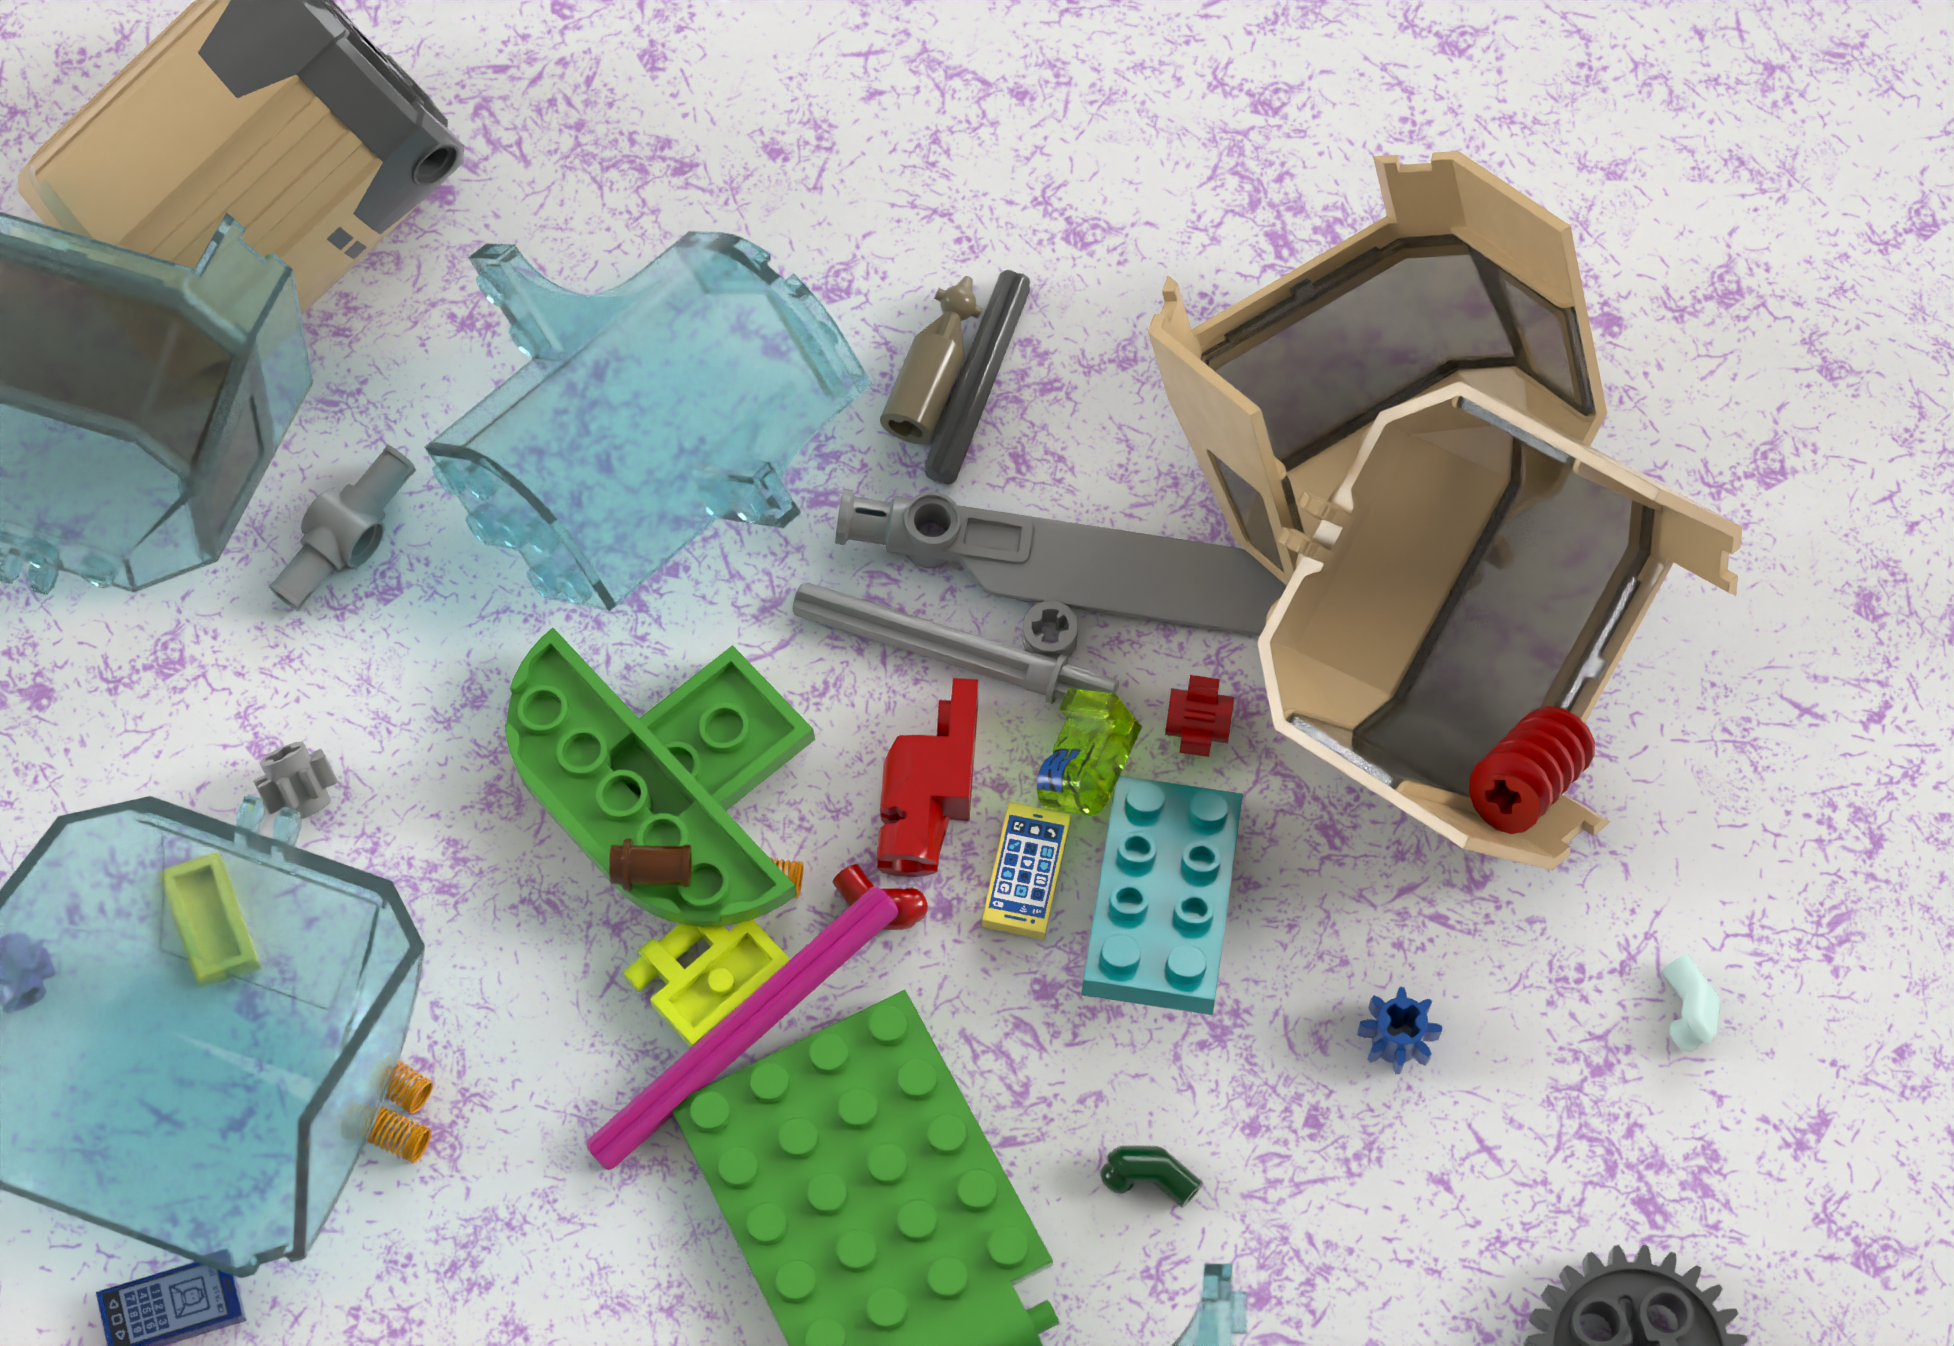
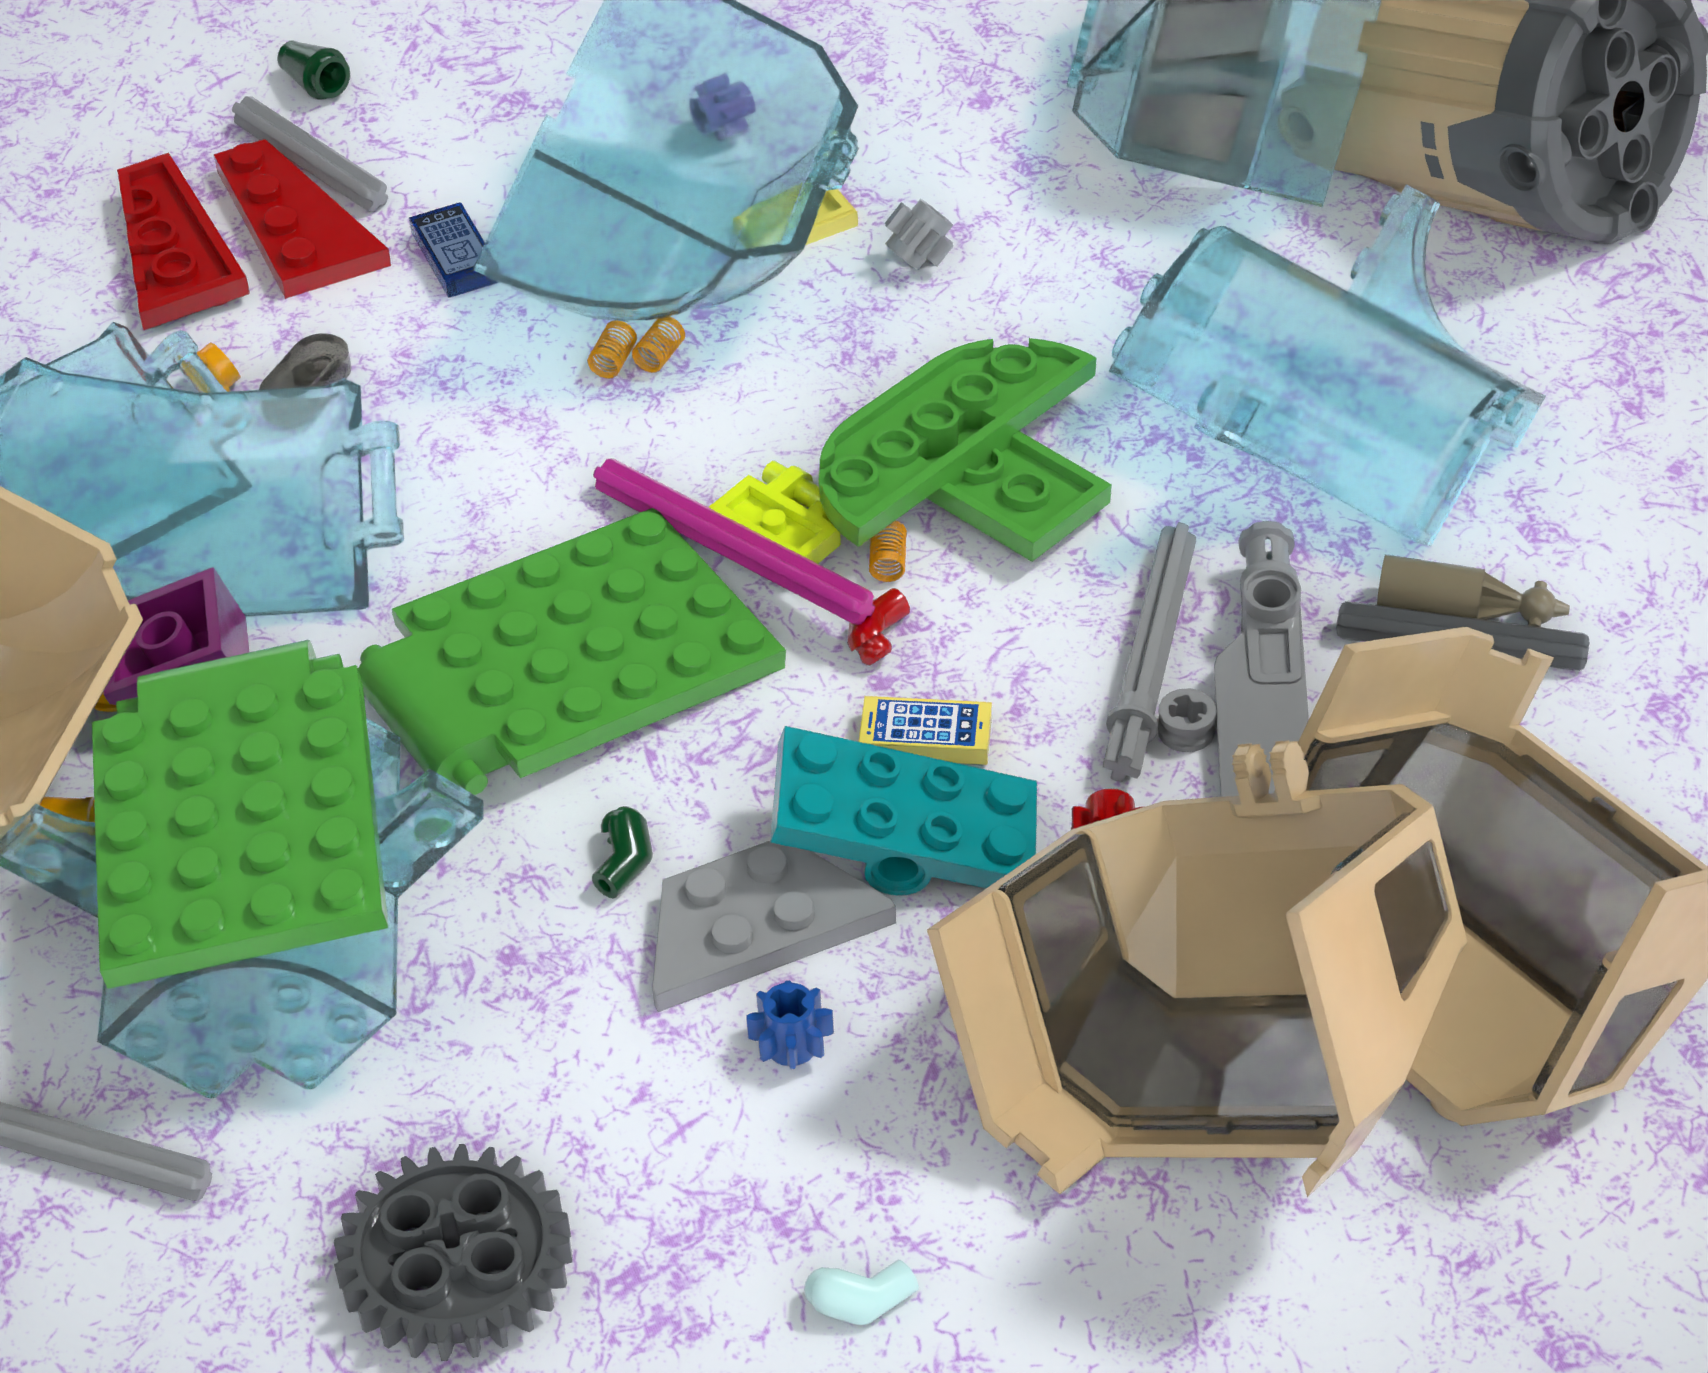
camera: 85 degrees right, 20 degrees down
(342, 528) = (1157, 229): light grey pin -> none
(650, 865) = (856, 413): reddish brown pin -> none
(927, 785) = (1004, 643): red plate -> none
(1087, 753) = (1047, 748): clear neon green leg -> none
(1248, 1062) = (754, 917): none -> light grey wing
(1530, 768) = (1084, 1068): red piece -> none

